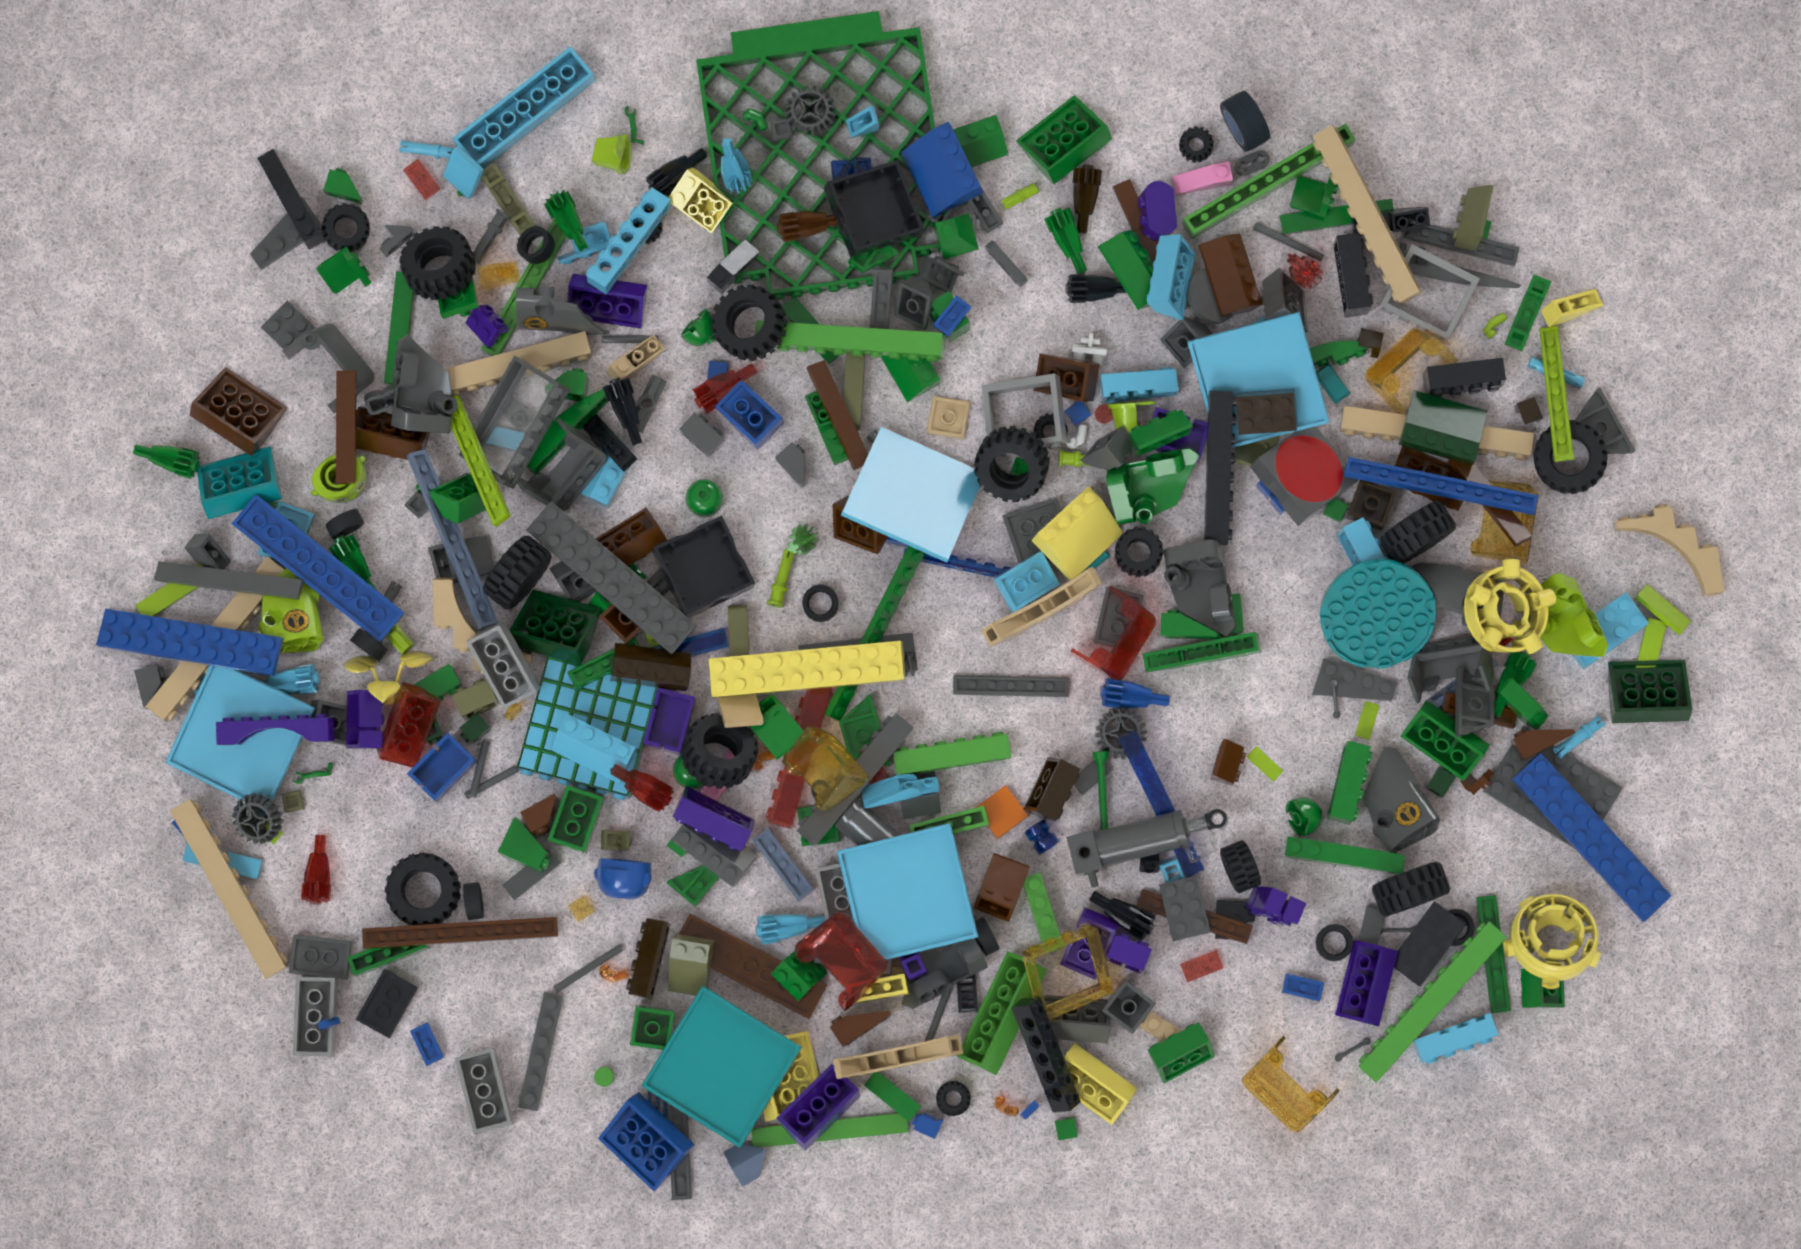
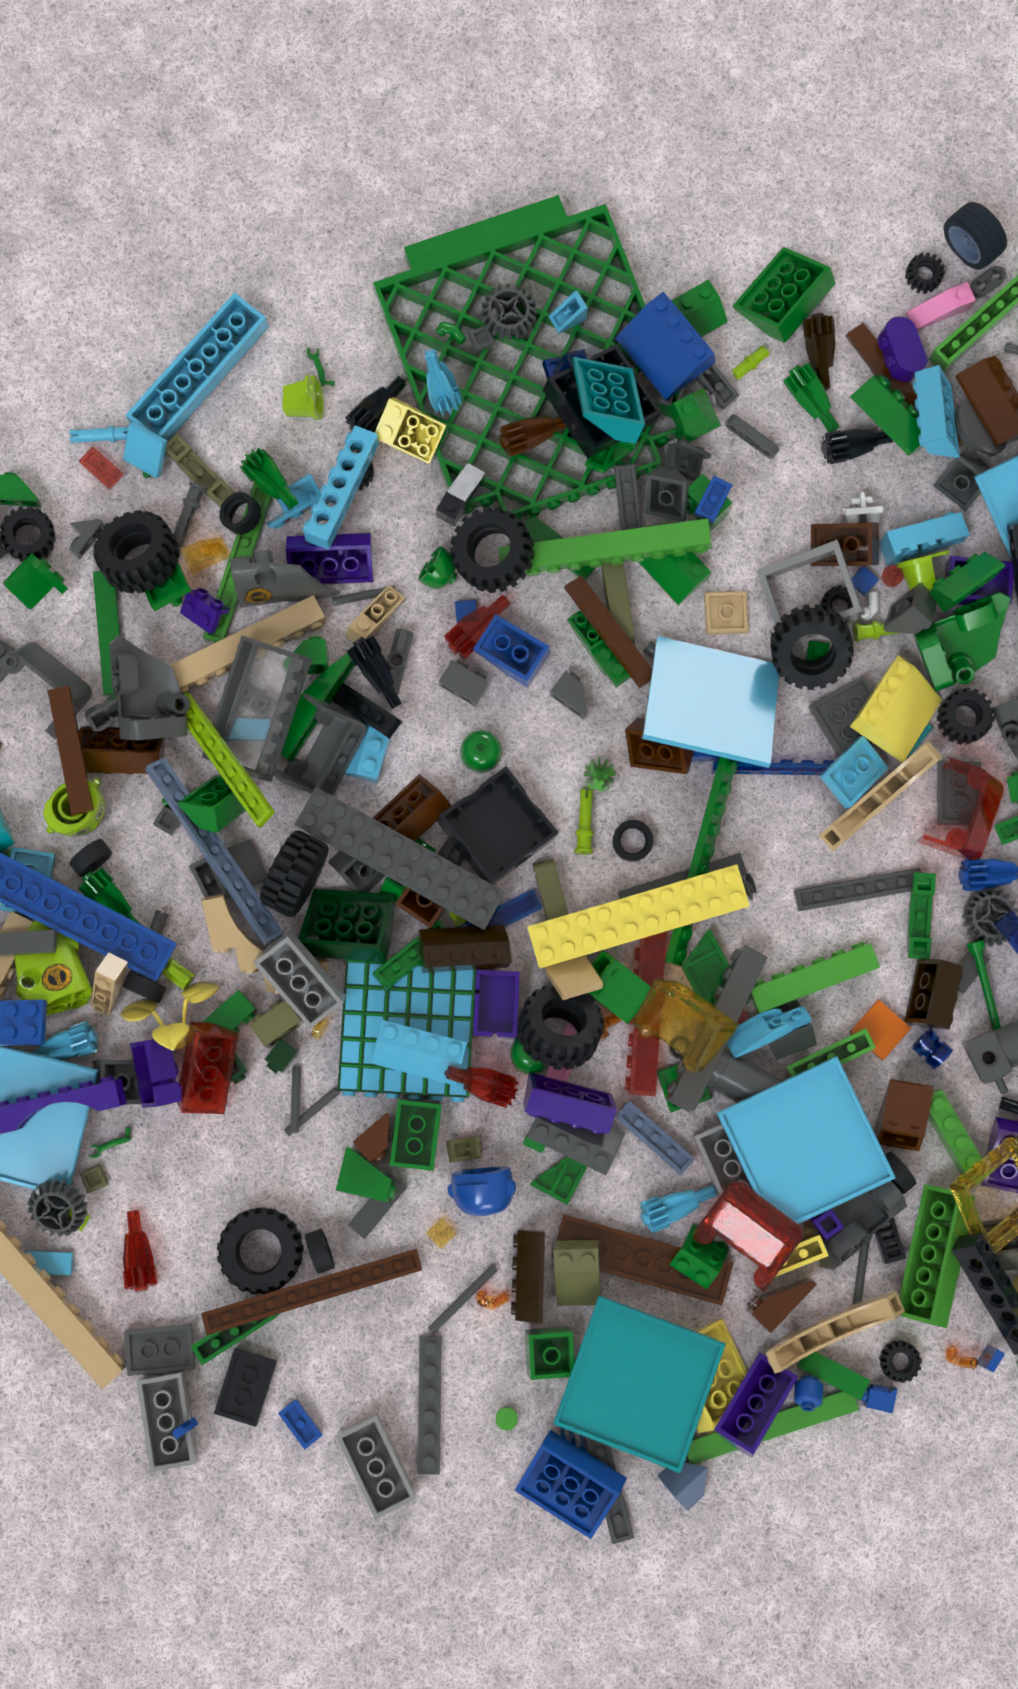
camera: 20 degrees left, 0 degrees up
(338, 635) = (108, 983): none -> tan slope
(442, 769) = (255, 1108): blue piece -> none
(867, 1107) = (808, 1393): none -> blue head
(876, 209) = (609, 398): none -> teal slope
(1059, 719) = (920, 915): none -> green slope

